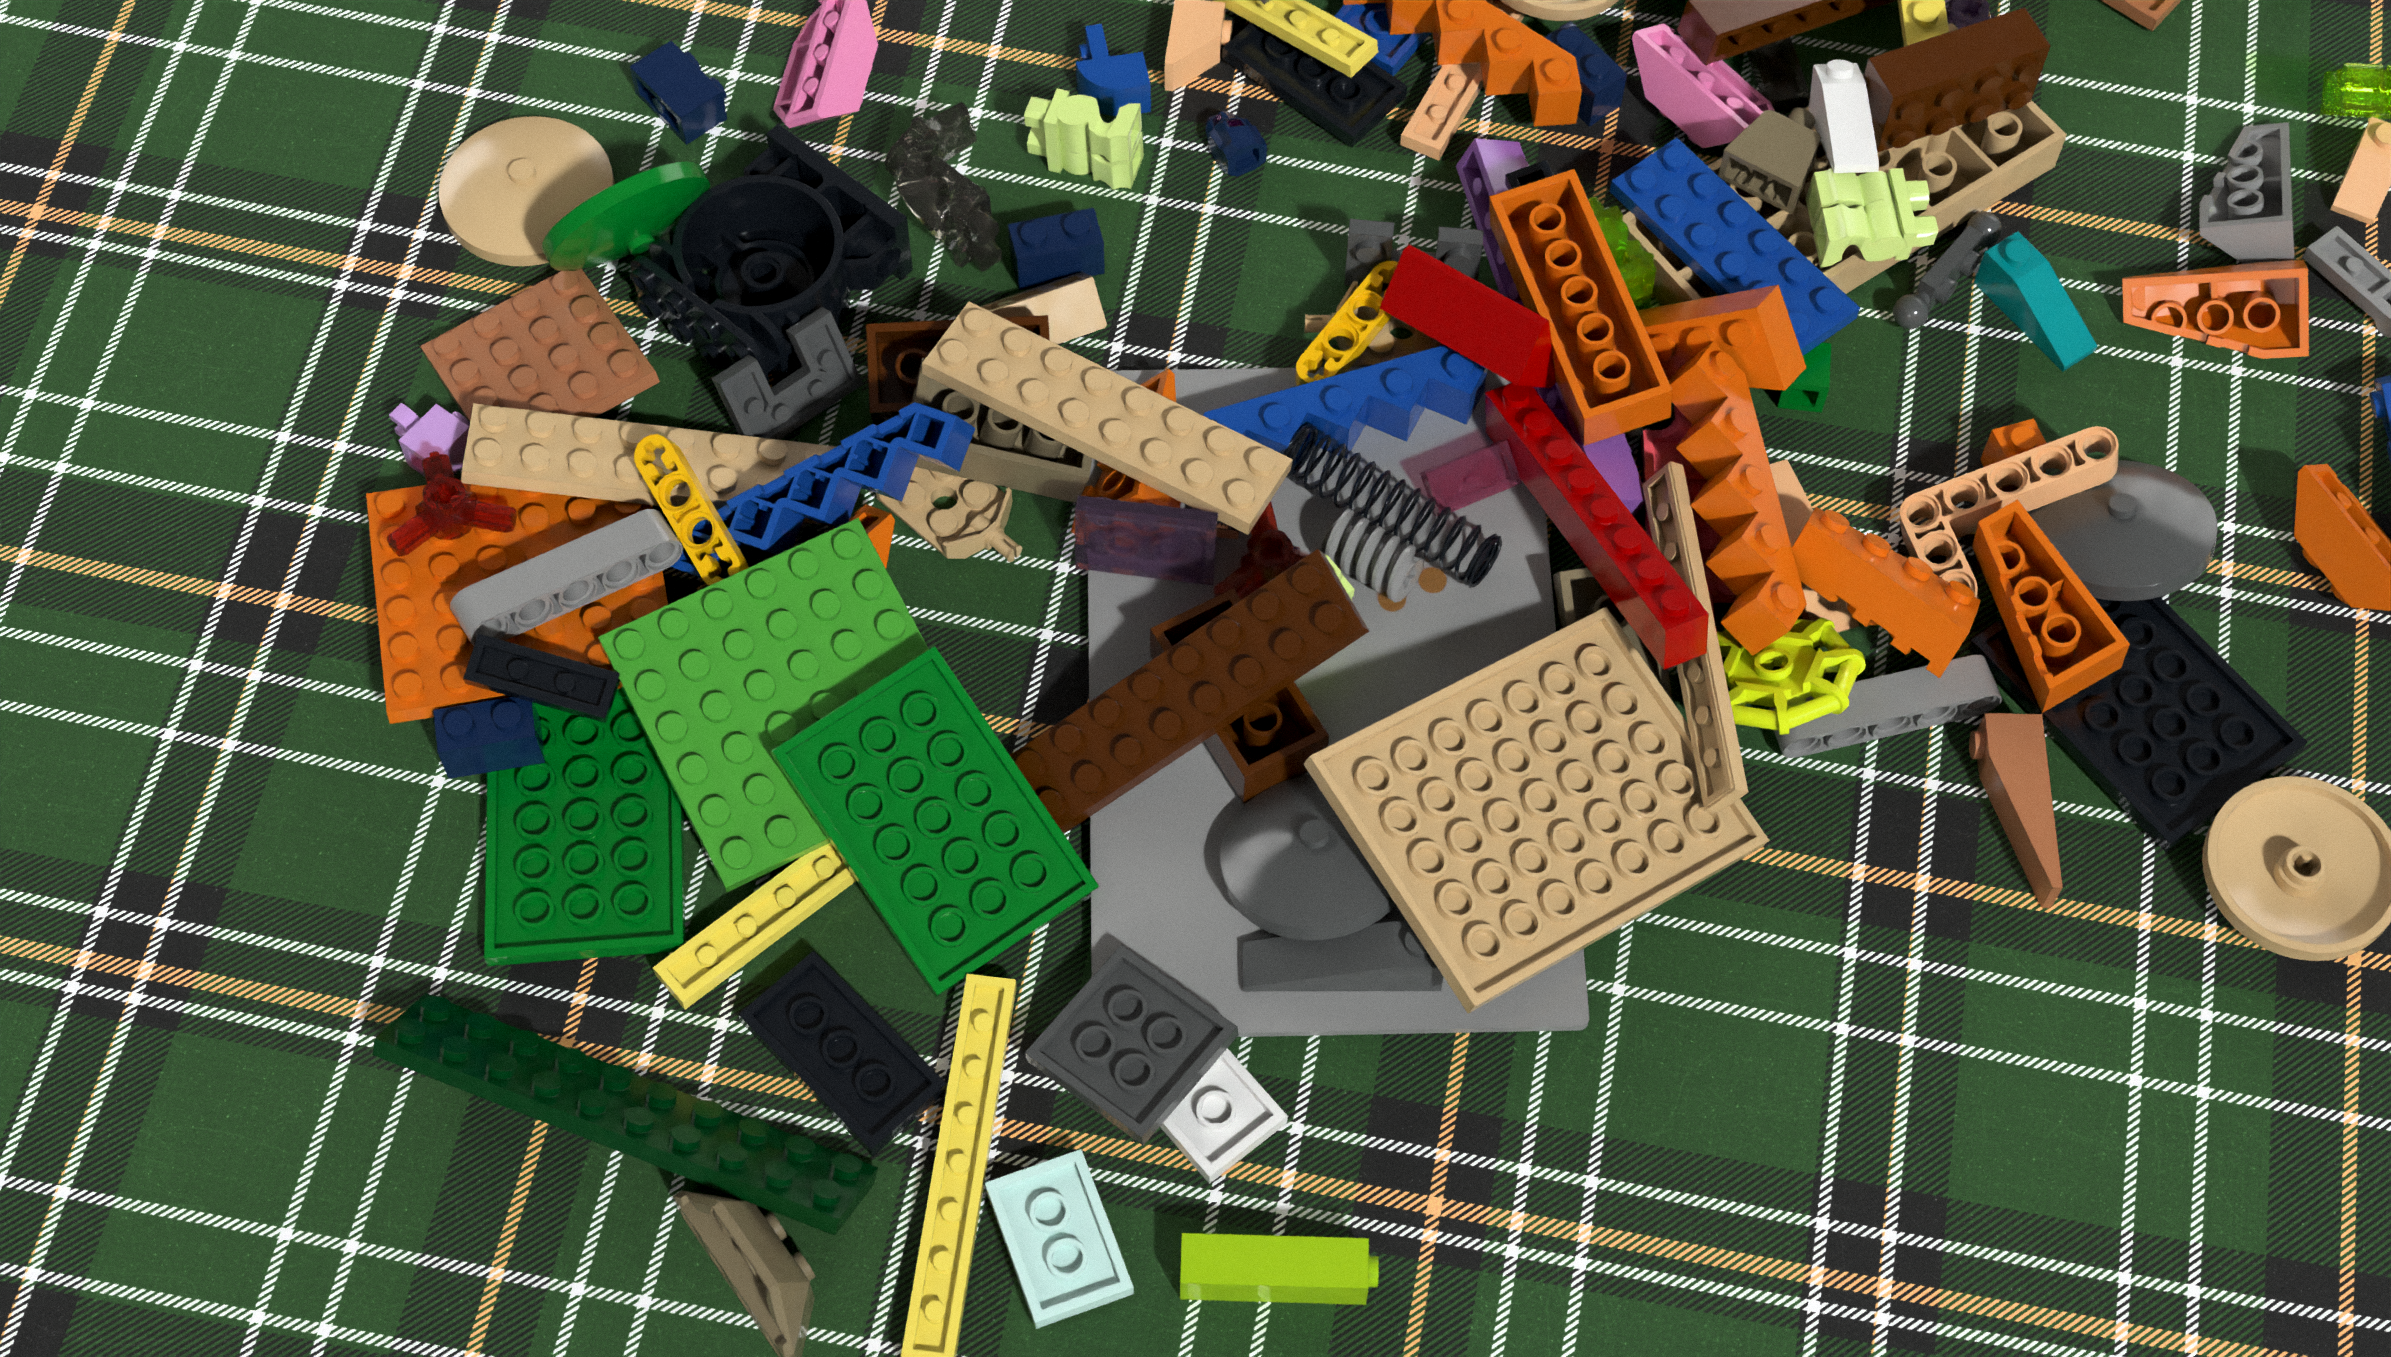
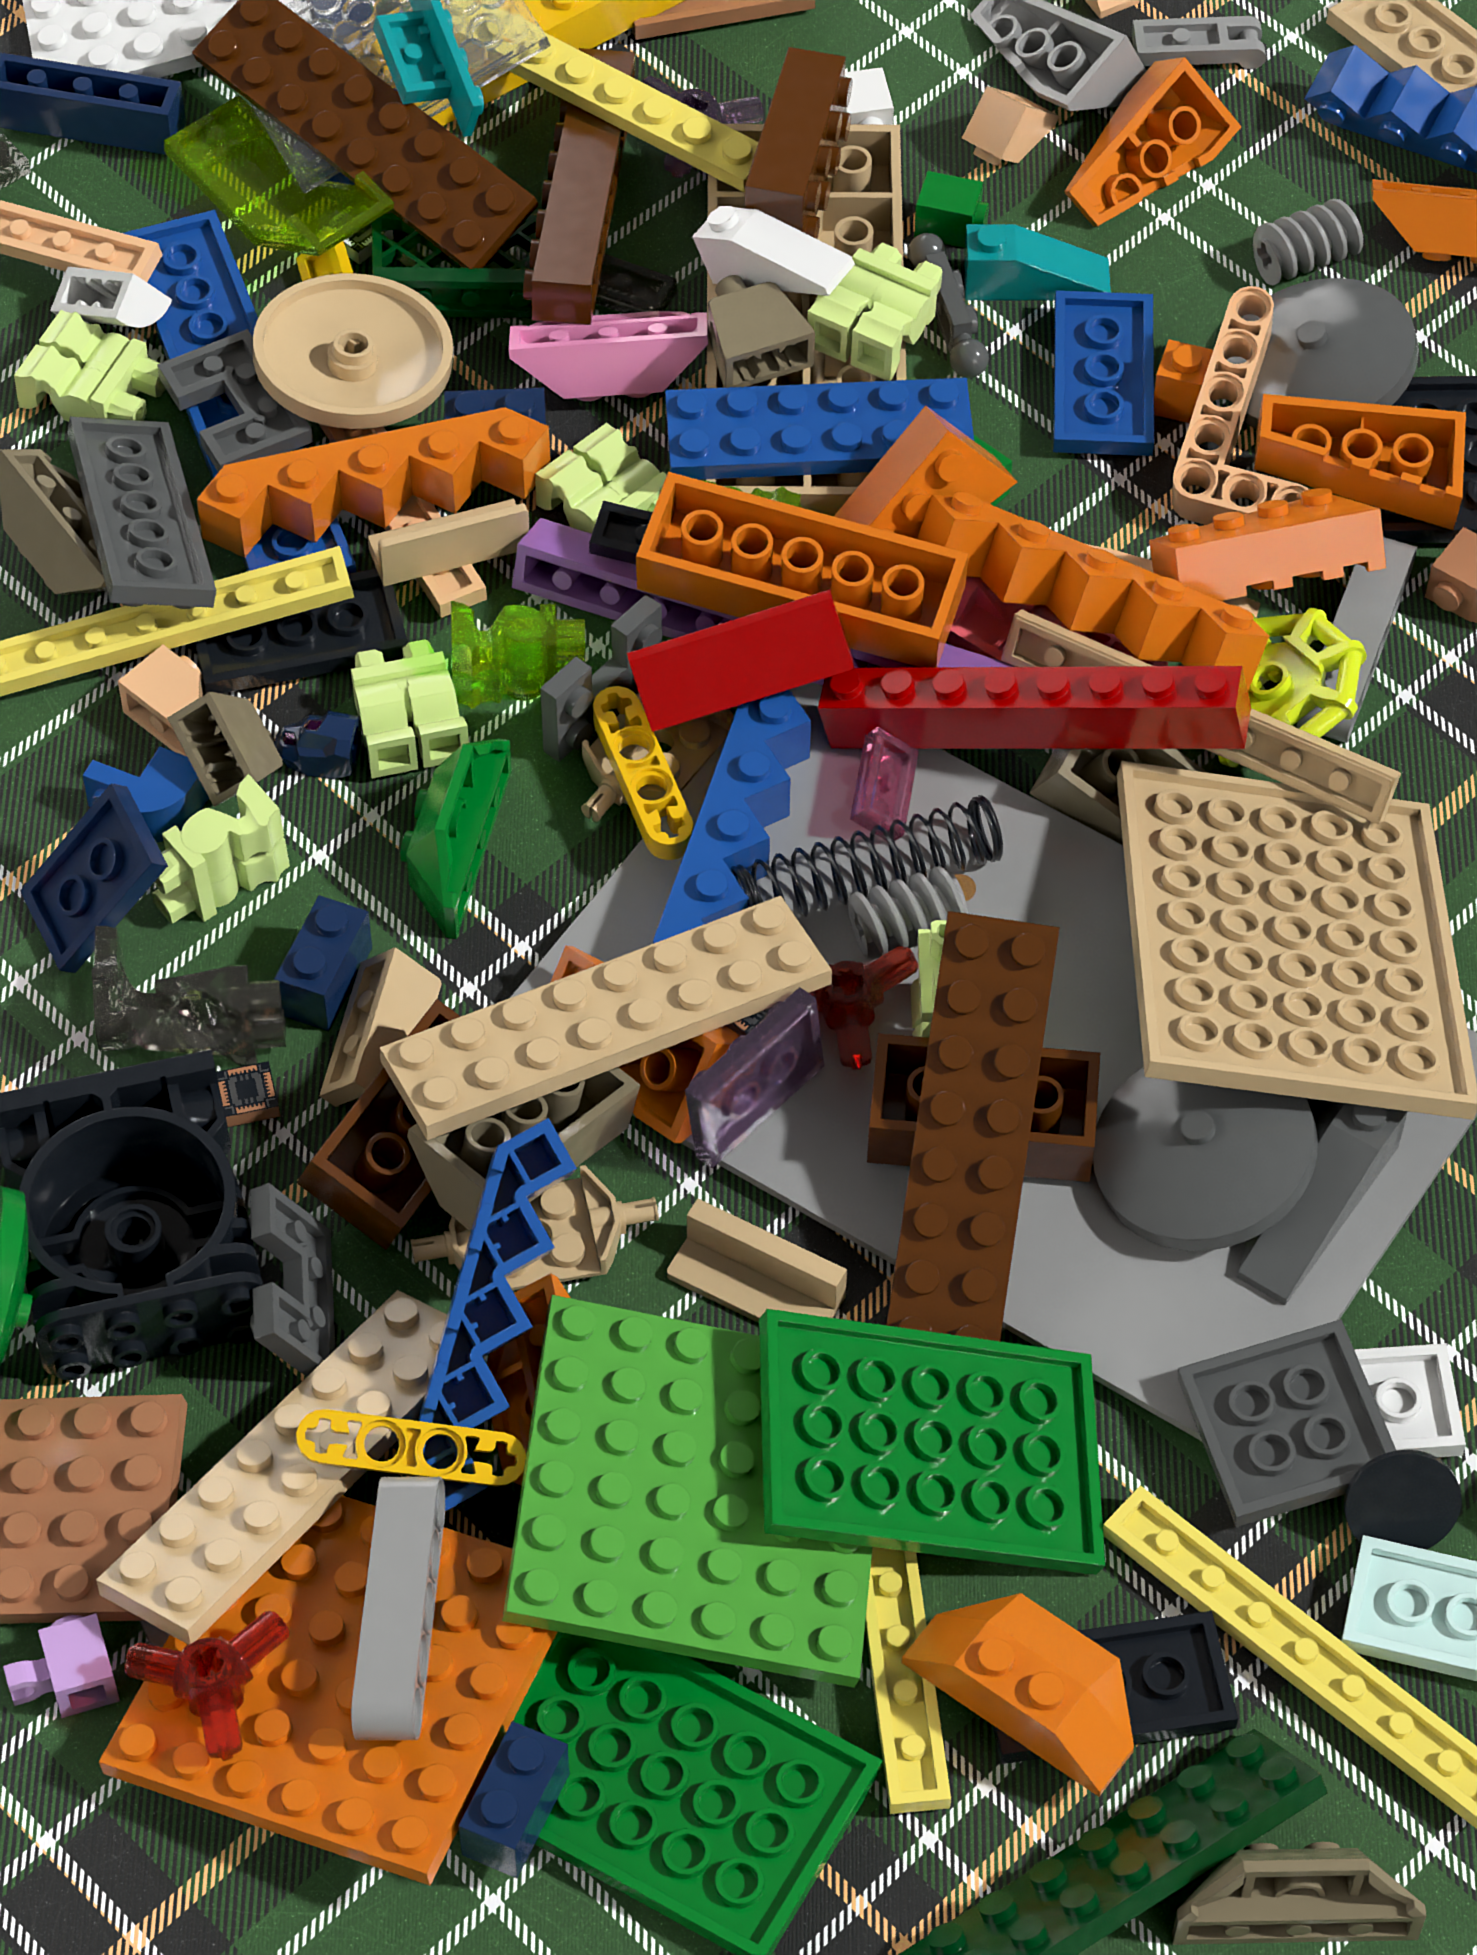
camera: 55 degrees left, 5 degrees down
(542, 678) = (512, 1693): black plate -> none
(797, 1000) = (1032, 1683): none -> orange wedge
(930, 274) = (248, 1094): none -> tile
(1011, 77) = (93, 877): none -> dark blue plate
(1012, 649) = (753, 1268): none -> tan panel
(1123, 1157) = (1403, 1499): none -> black shield
(1171, 83) = (226, 744): none -> dark tan torso
(1227, 256) = (455, 828): none -> green wedge
(1311, 157) = (404, 692): none -> yellowish green hips
(1388, 192) = (515, 653): none -> clear neon green hips
(1450, 101) = (448, 541): none -> tan panel
(1608, 155) = (596, 472): none -> yellowish green hips
(1955, 412) = (1103, 373): none -> blue plate
(2038, 216) = (948, 205): none -> green brick
(2083, 110) = (870, 98): none -> white brick
(2154, 207) = (1007, 126): none -> light nougat slope
(2232, 458) = (1306, 239): none -> light grey piece

